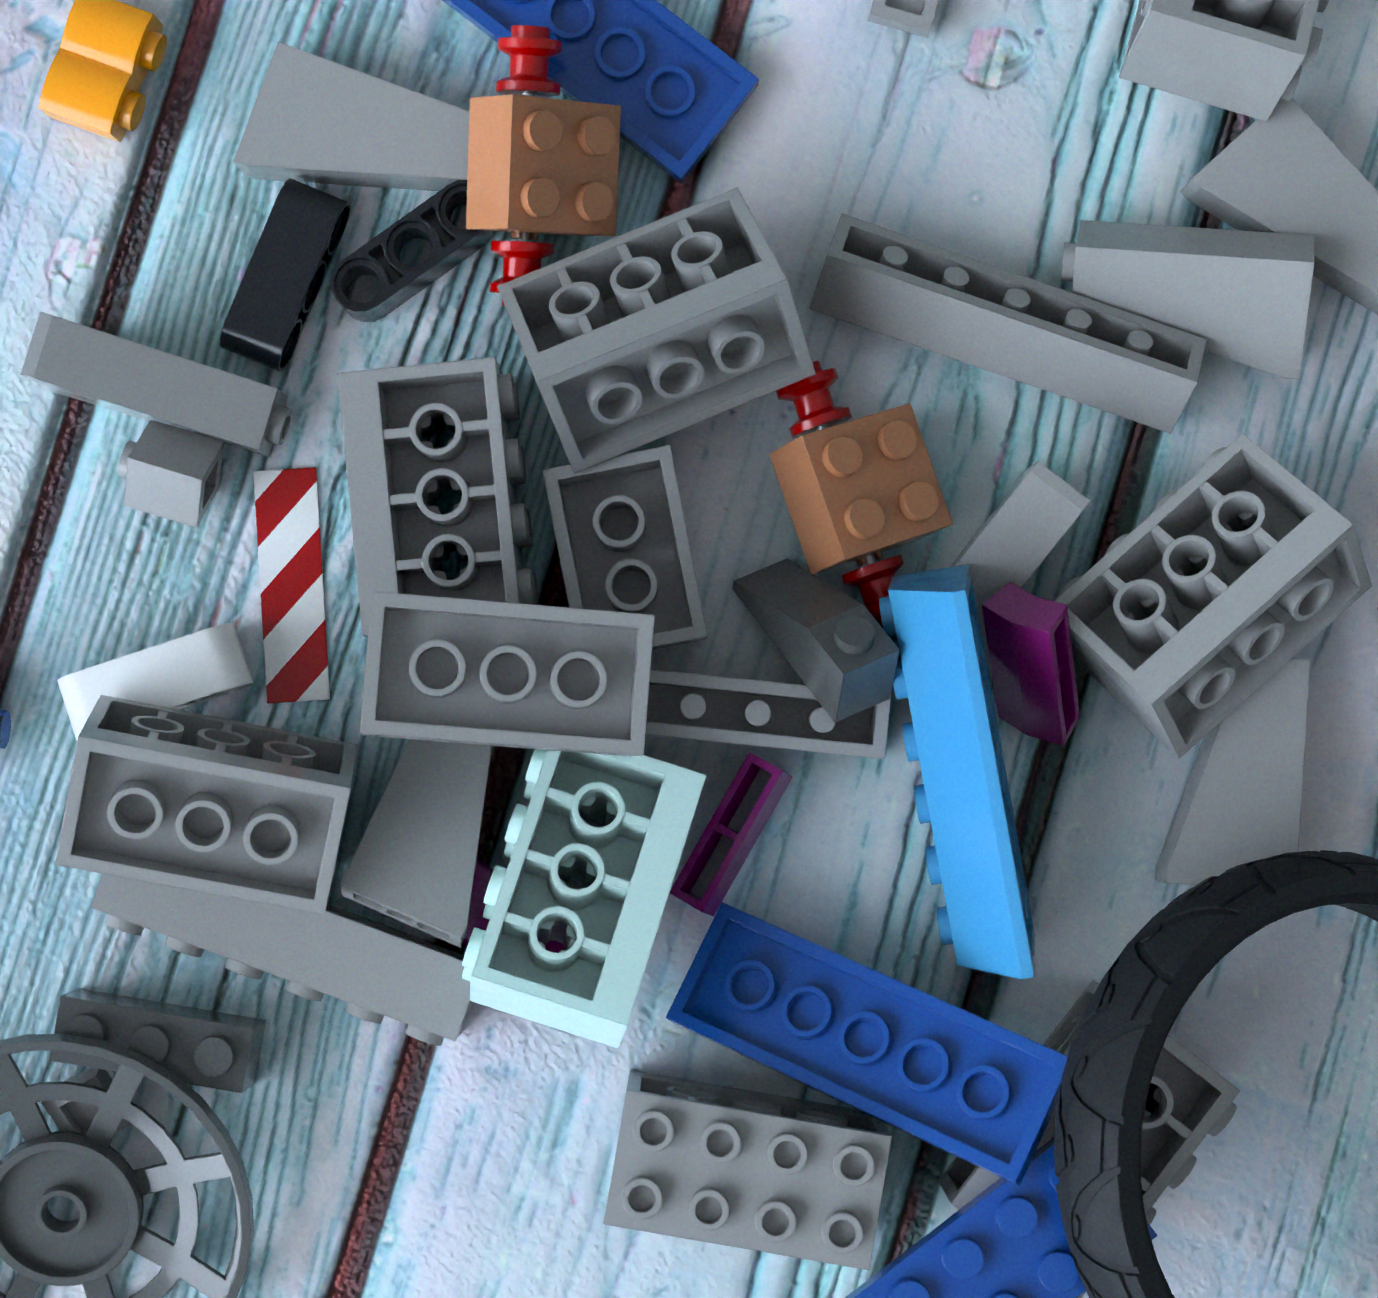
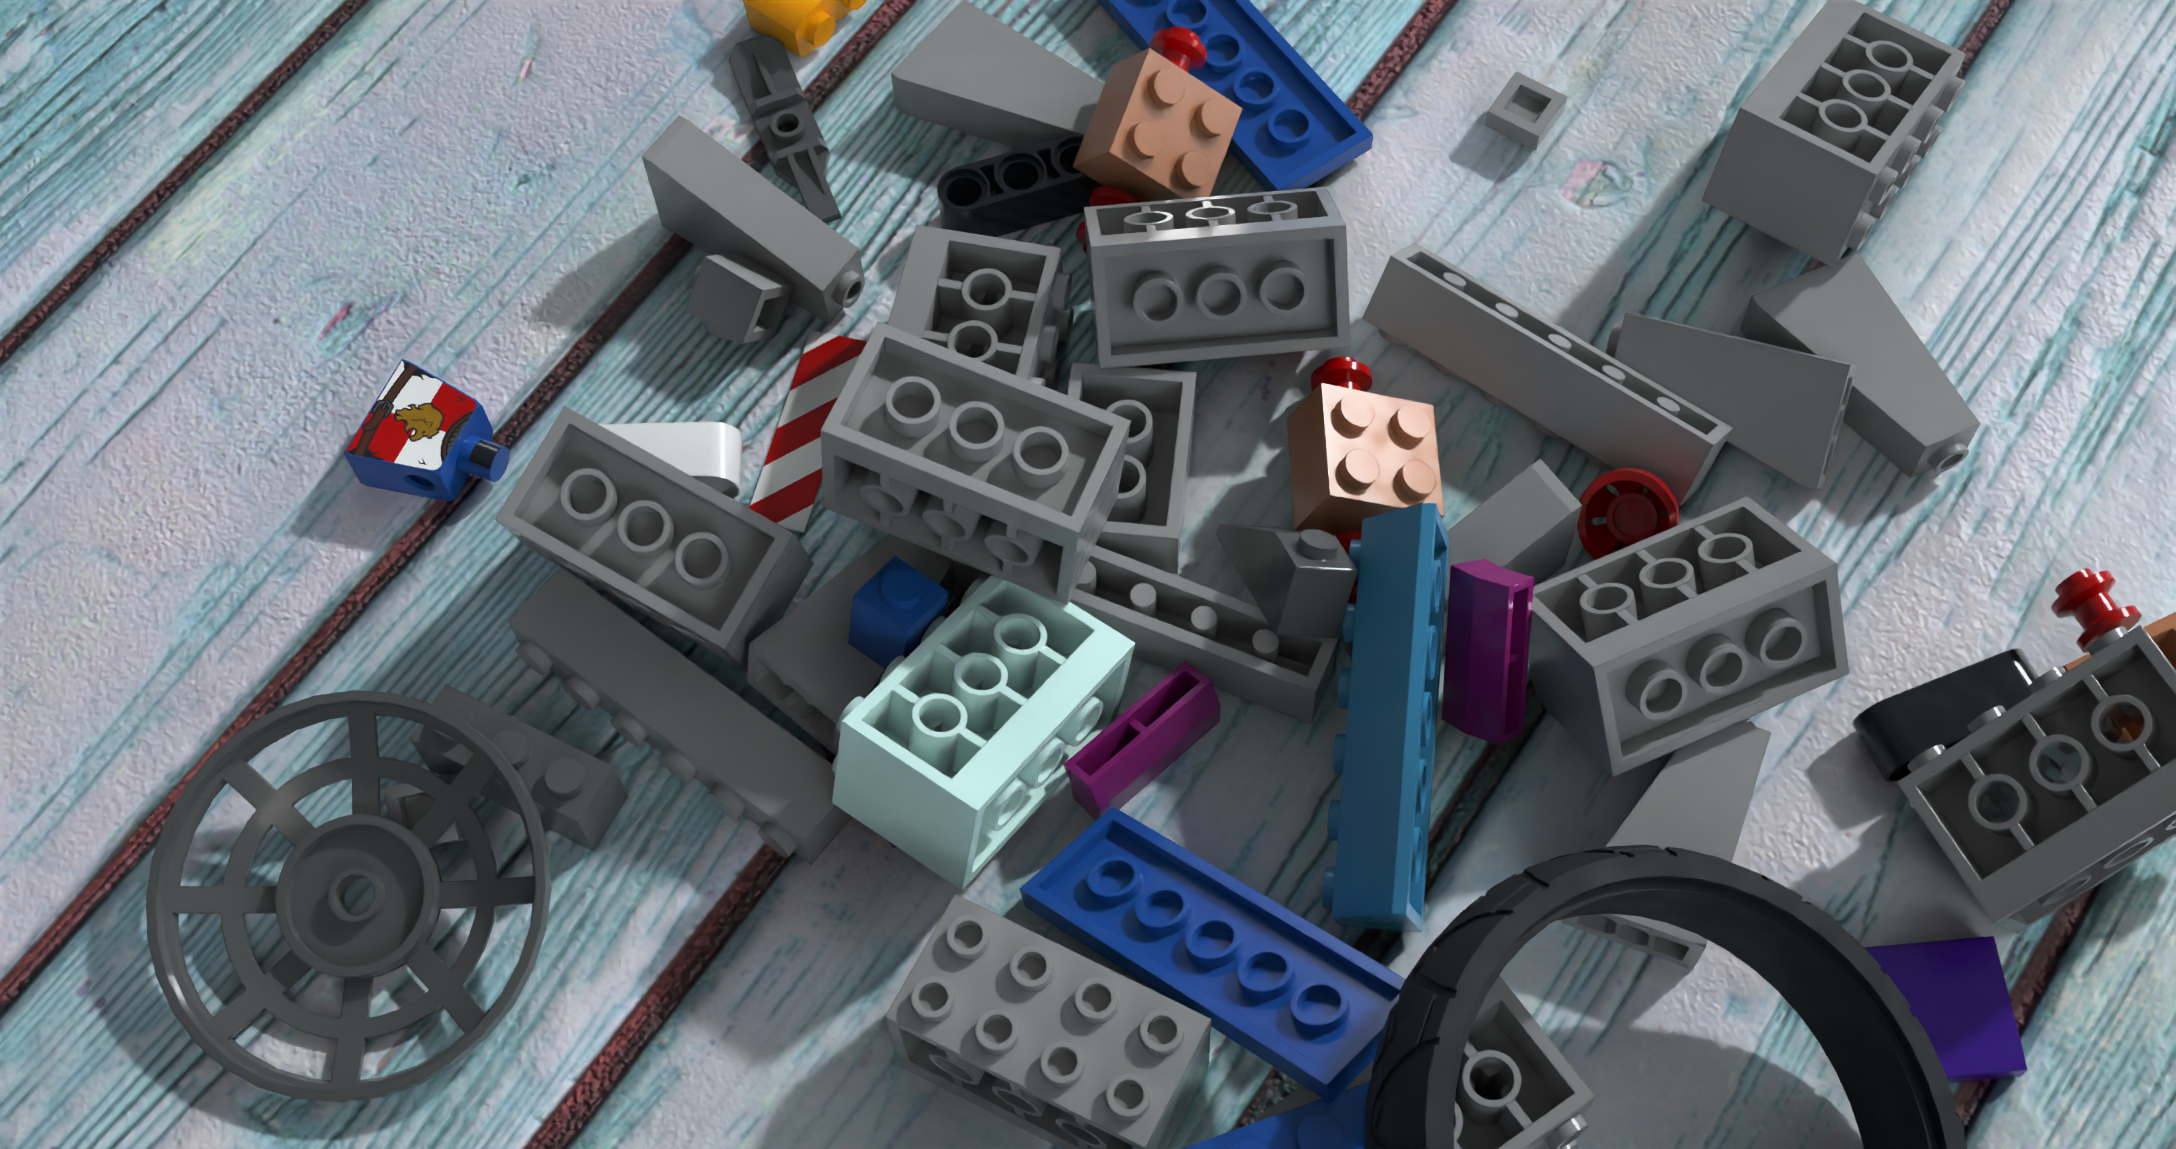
camera: 20 degrees right, 25 degrees down
(118, 206) = (776, 100): none -> dark grey piece
(285, 274) = (898, 179): black beam -> none
(473, 820) = (894, 612): none -> blue brick
(1127, 451) = (1630, 515): none -> red helmet

